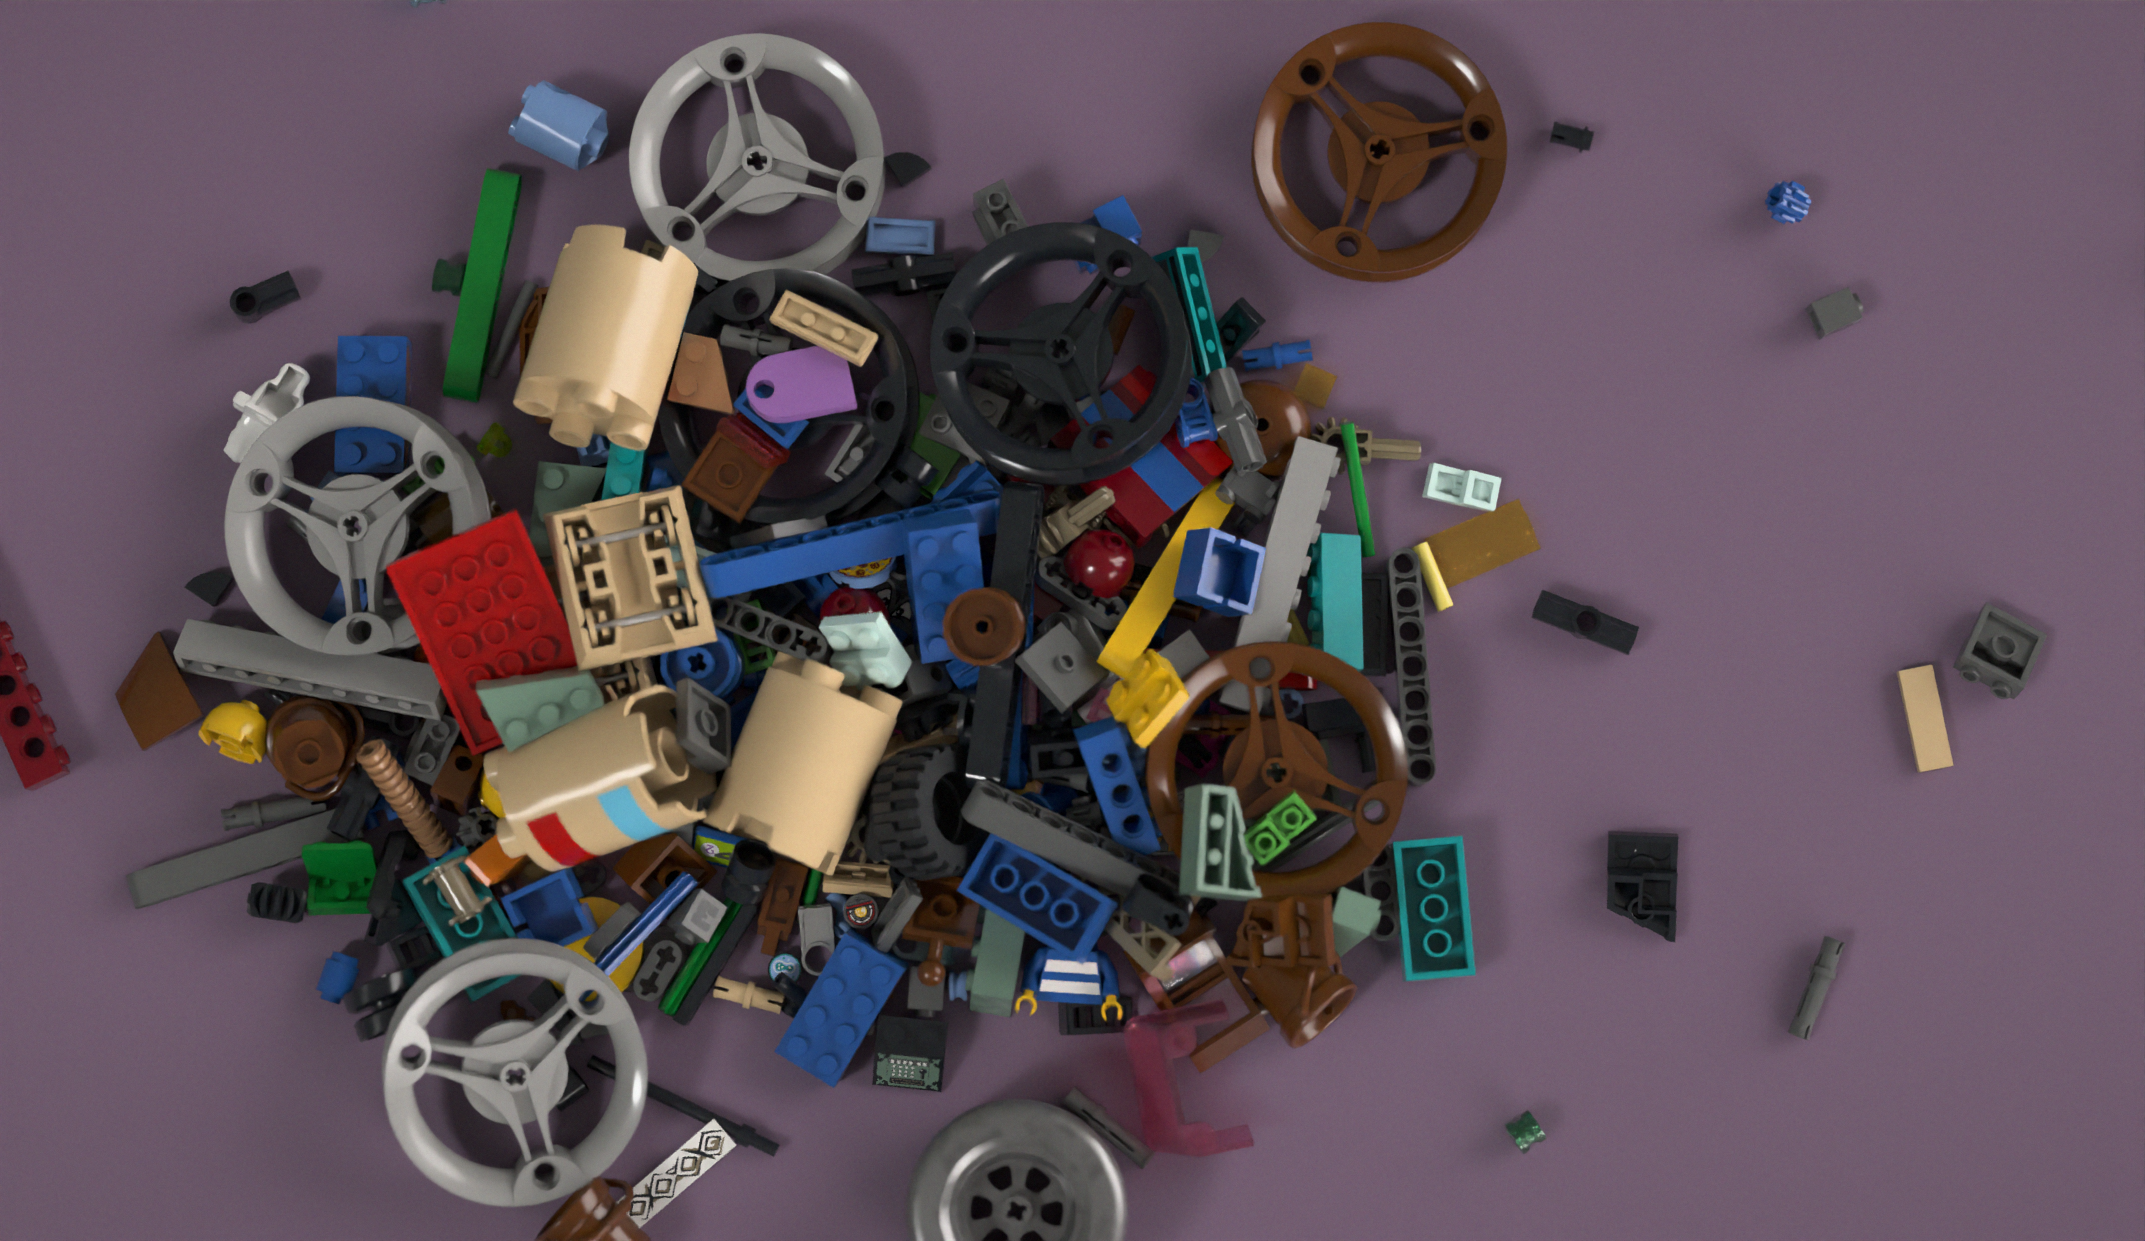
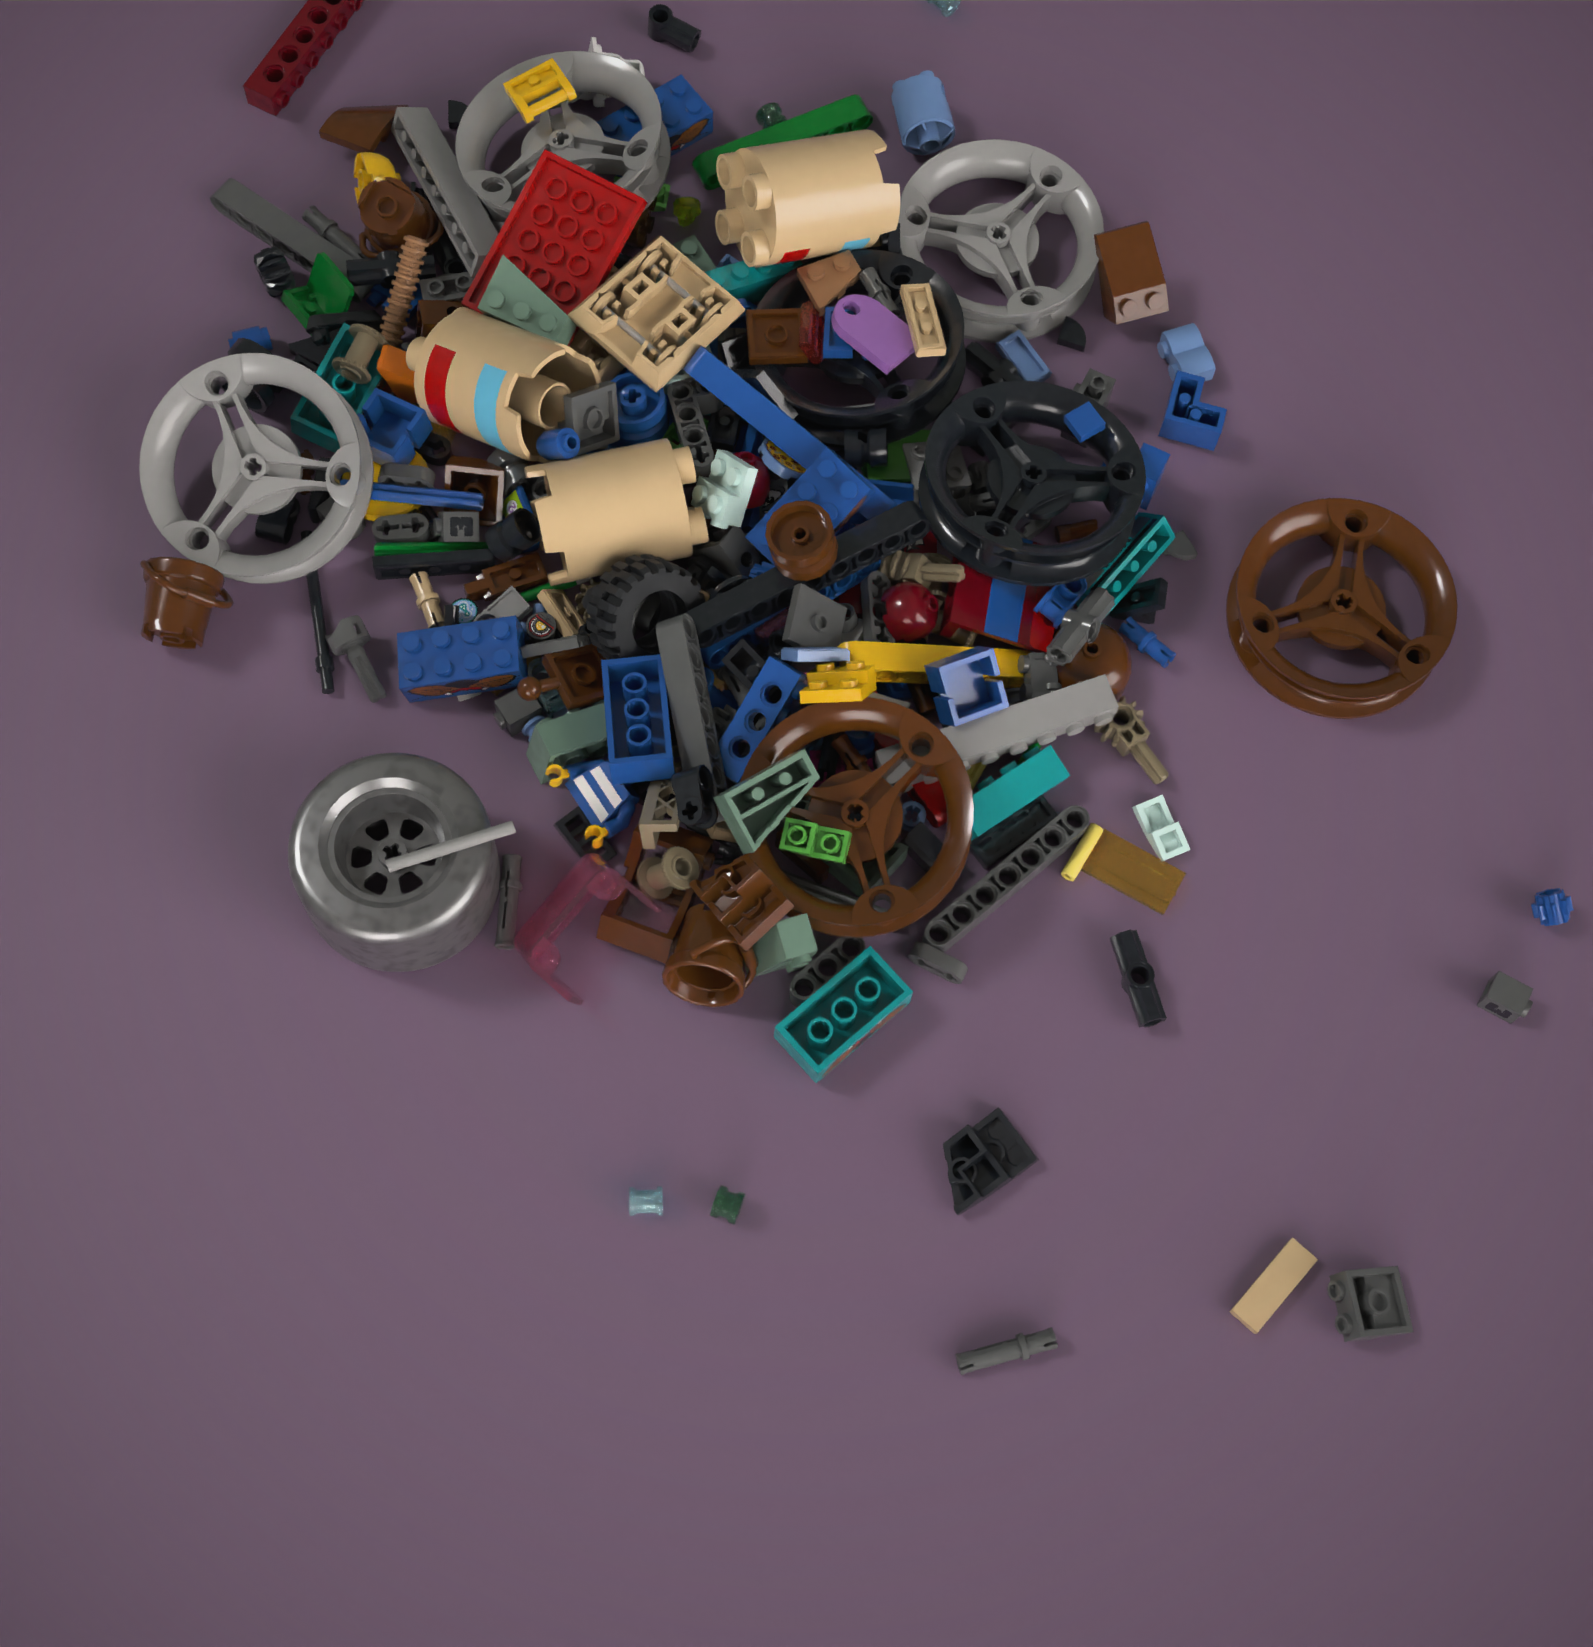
camera: 50 degrees right, 15 degrees down
(276, 510) = (536, 84): none -> yellow plate
(679, 1171) = (262, 637): white sticker -> none
(712, 777) = (558, 444): none -> blue brick
(743, 1098) = (350, 642): none -> dark grey piece
(898, 69) = (1130, 274): none -> reddish brown slope
(910, 1053) = (464, 729): black slope -> none
(1013, 77) = (1186, 352): none -> medium blue brick
(1042, 259) = (1084, 422): none -> blue tile
(1062, 1160) = (450, 846): none -> light grey bar
(1080, 136) = (1187, 418): none -> blue brick
(1098, 693) = (815, 654): none -> medium blue tile
(1203, 966) = (659, 876): none -> dark tan hose
(1315, 385) = (1147, 682): clear yellow tile -> none
(1357, 488) = (1101, 752): green bar -> none
(1442, 787) = (938, 962): none -> dark grey beam
(1471, 1199) = (646, 1201): none -> clear light blue bush
(1572, 136) = (1466, 736): black pin -> none

